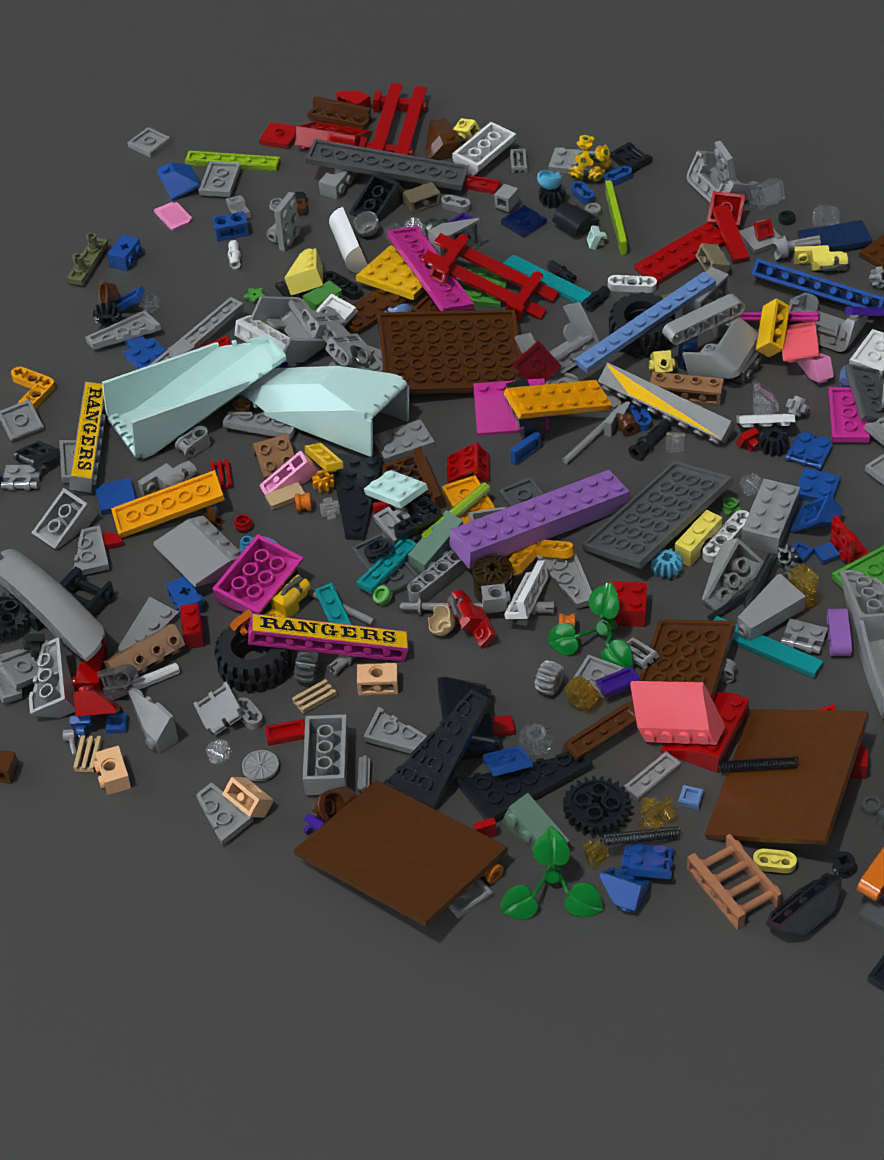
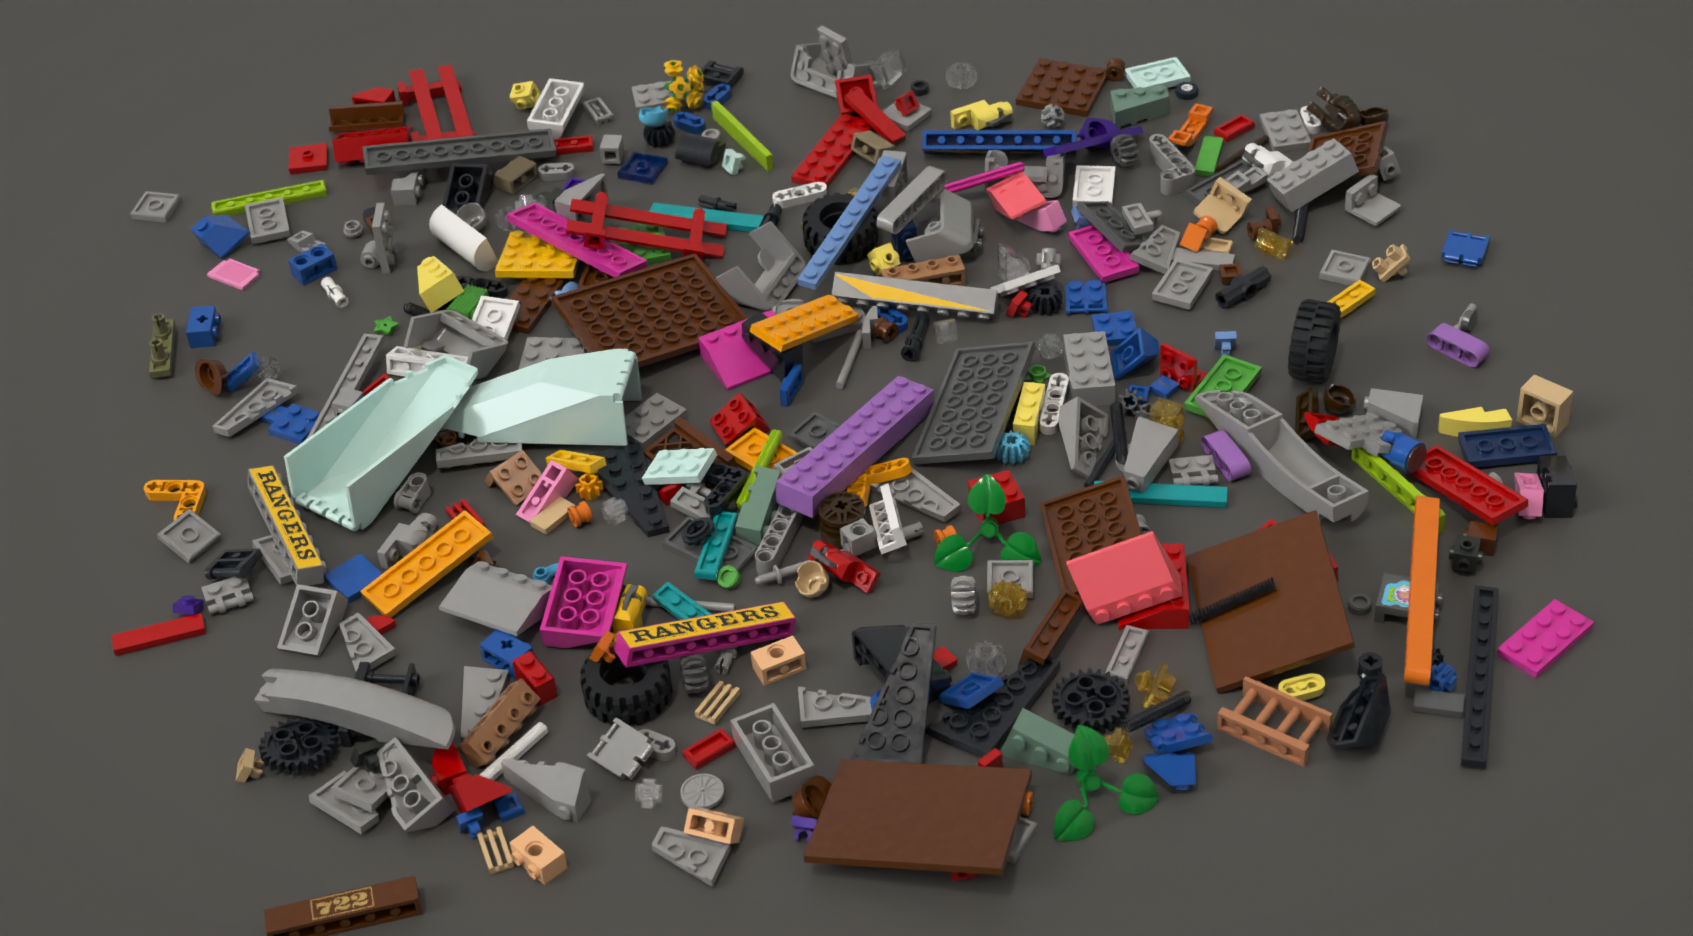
camera: 25 degrees left, 5 degrees down
(68, 735) = (462, 839): light grey hand -> none
(107, 314) = (225, 394): black gear -> none
(114, 677) = (484, 759): dark grey piece -> none
(243, 522) = (523, 557): red plate -> none
(339, 341) = (508, 330): light grey piece -> none
(363, 777) = (822, 759): light grey axle -> none
(441, 140) = (501, 113): reddish brown wedge -> none
(537, 363) = (755, 295): dark red plate -> none
(617, 682) = (1038, 574): dark purple tile -> none
(646, 659) = (1046, 546): light grey tile -> none
(690, 797) = (1178, 660): medium blue tile -> none
(772, 328) = (983, 190): yellow brick -> none
(784, 246) = (937, 114): light grey piece -> none
(840, 236) = (990, 87): dark blue tile -> none

